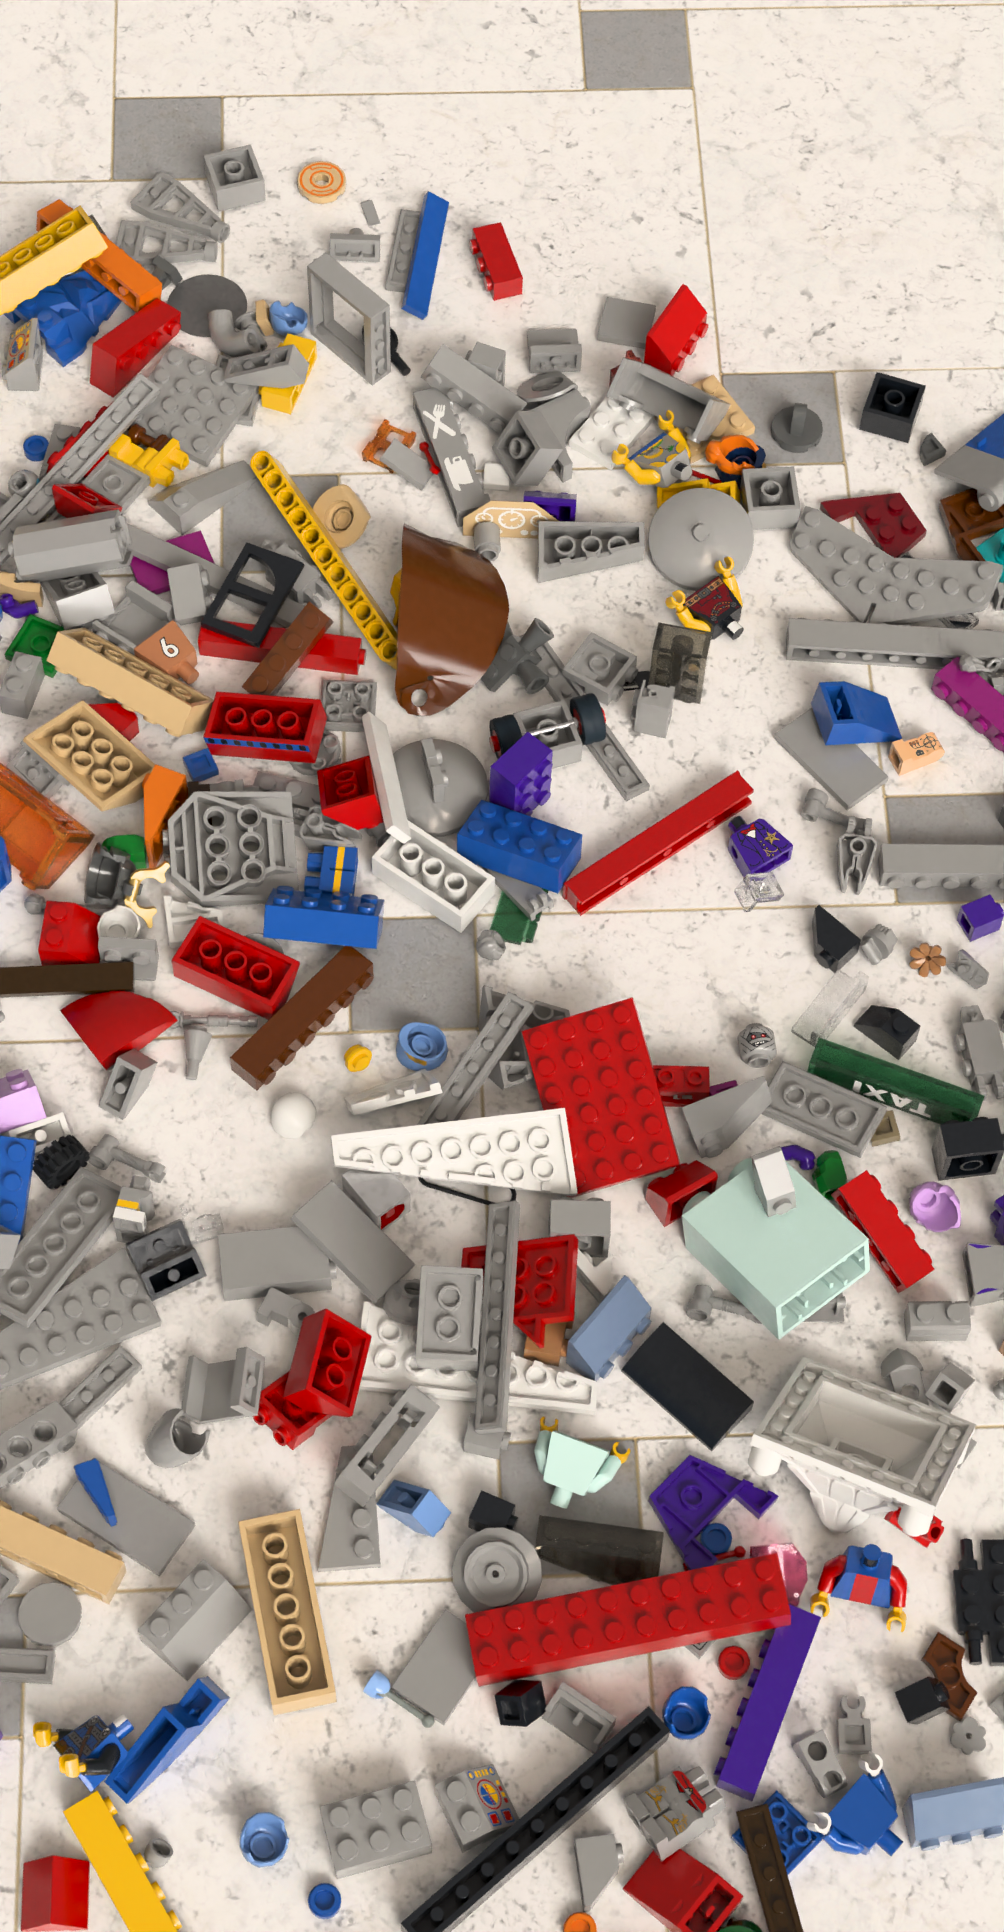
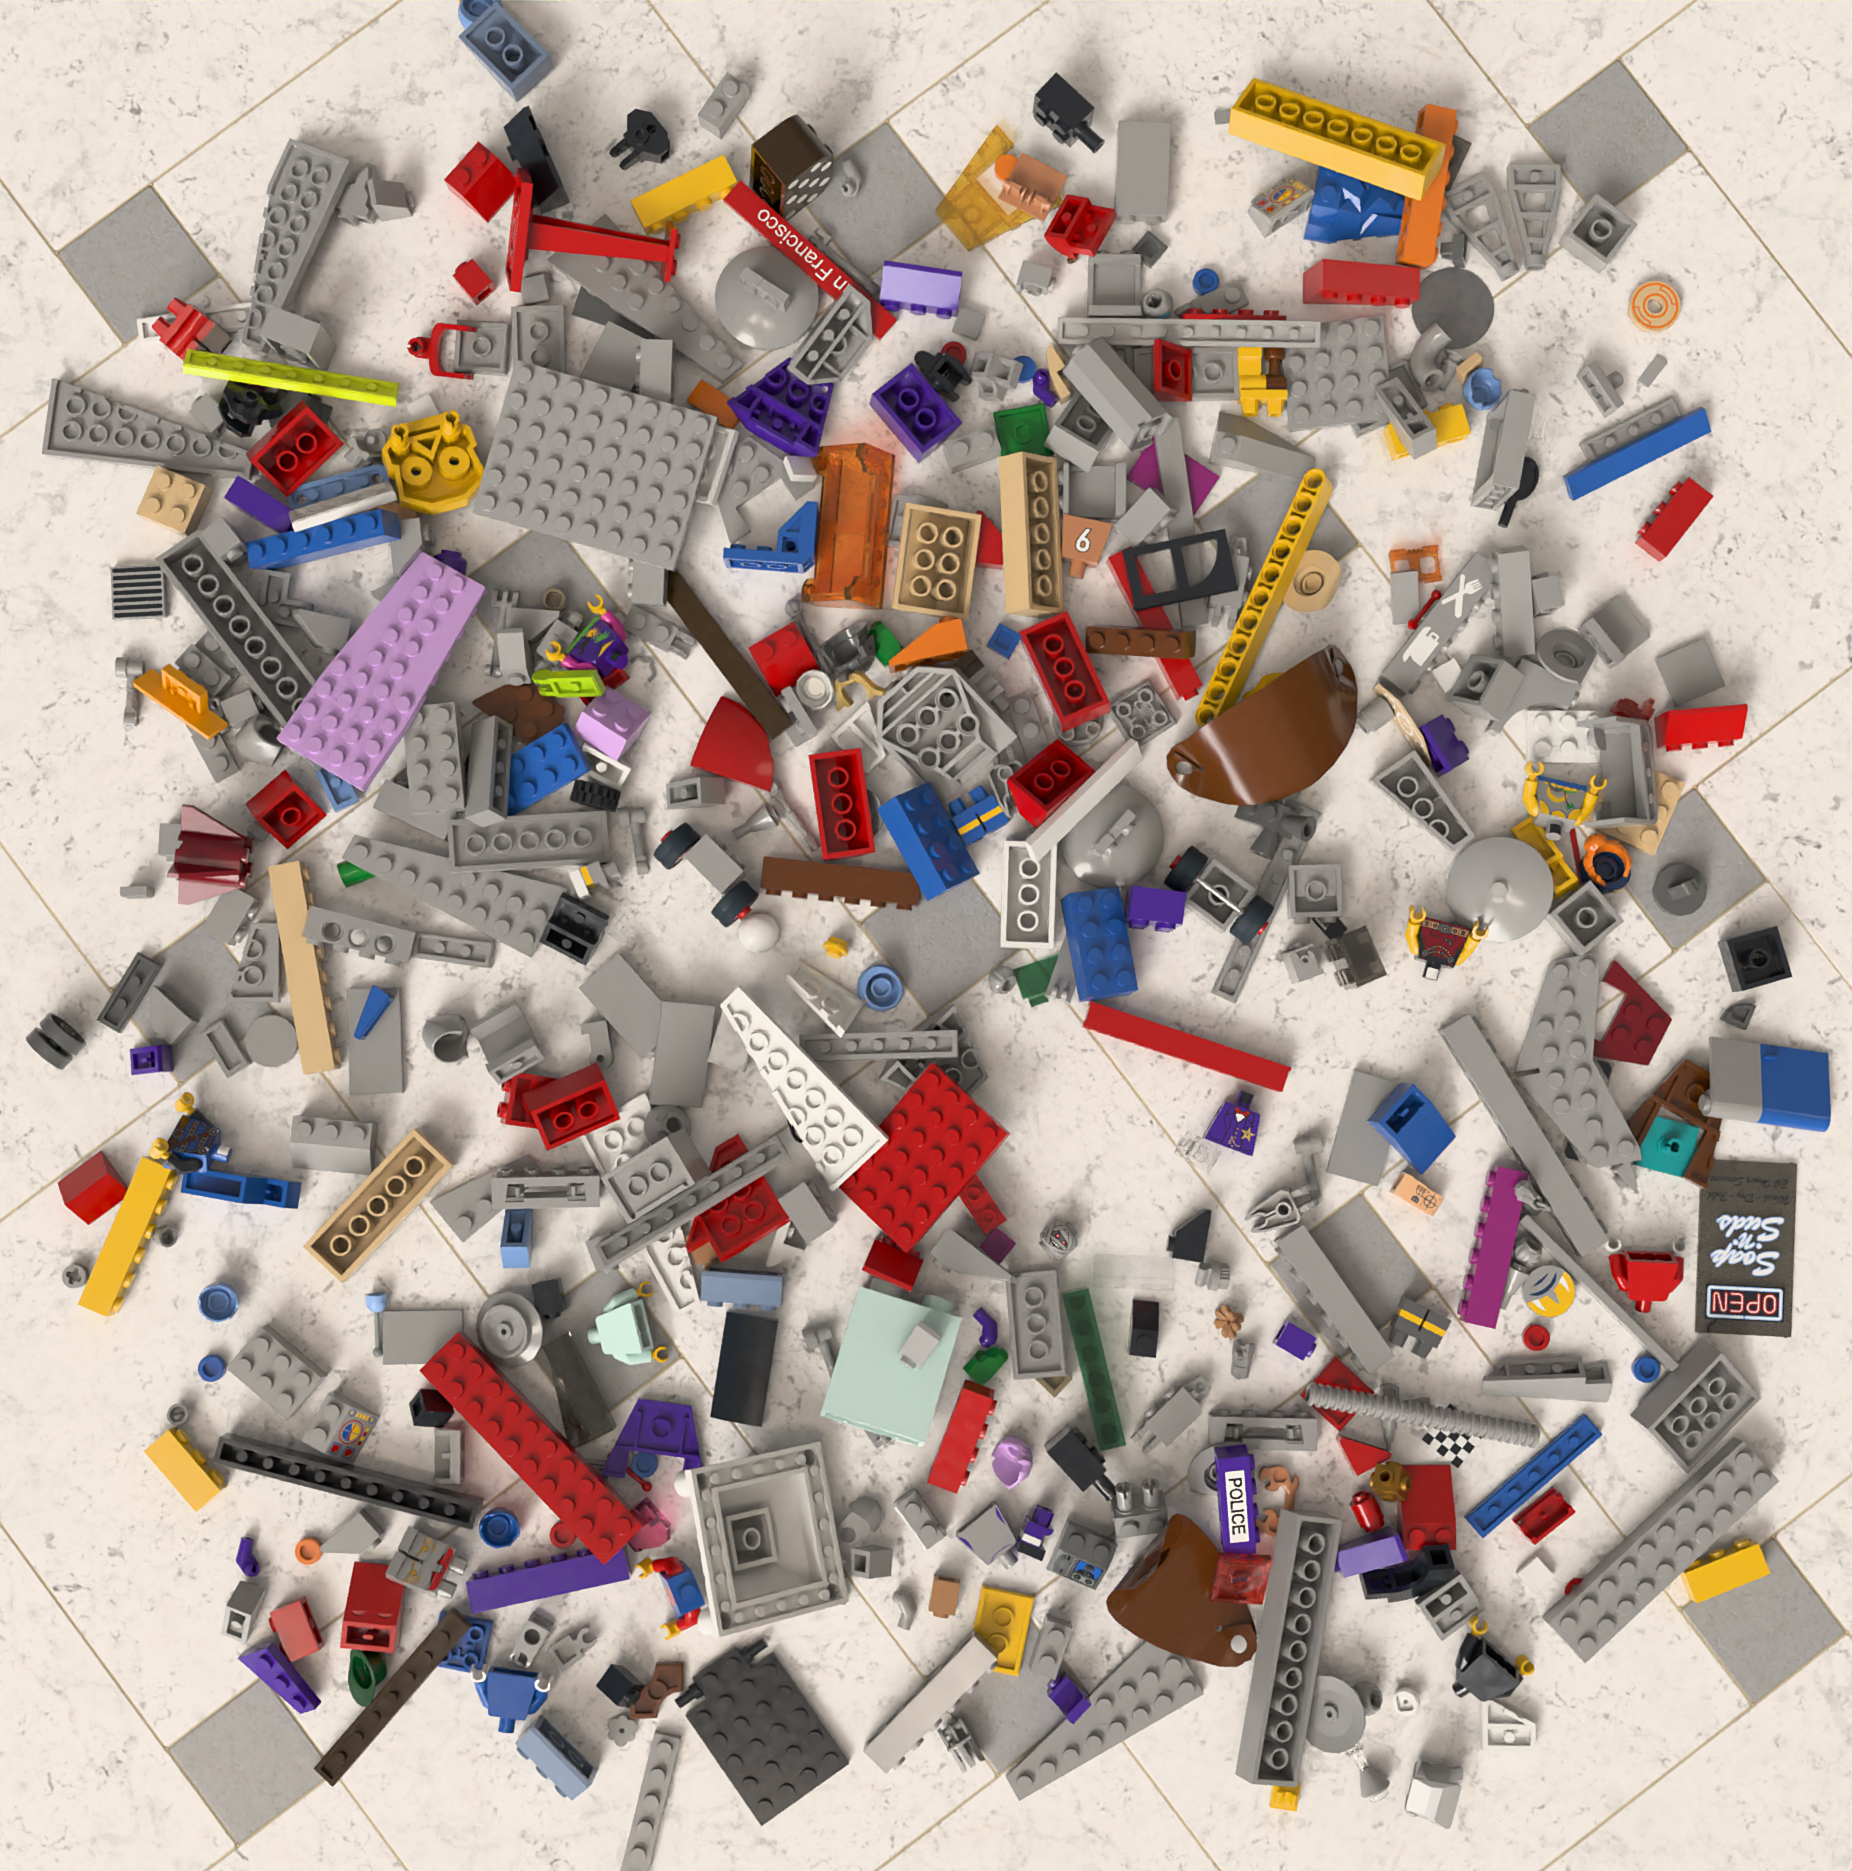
camera: 50 degrees right, 25 degrees up
(206, 1104) = (715, 865): none -> brick

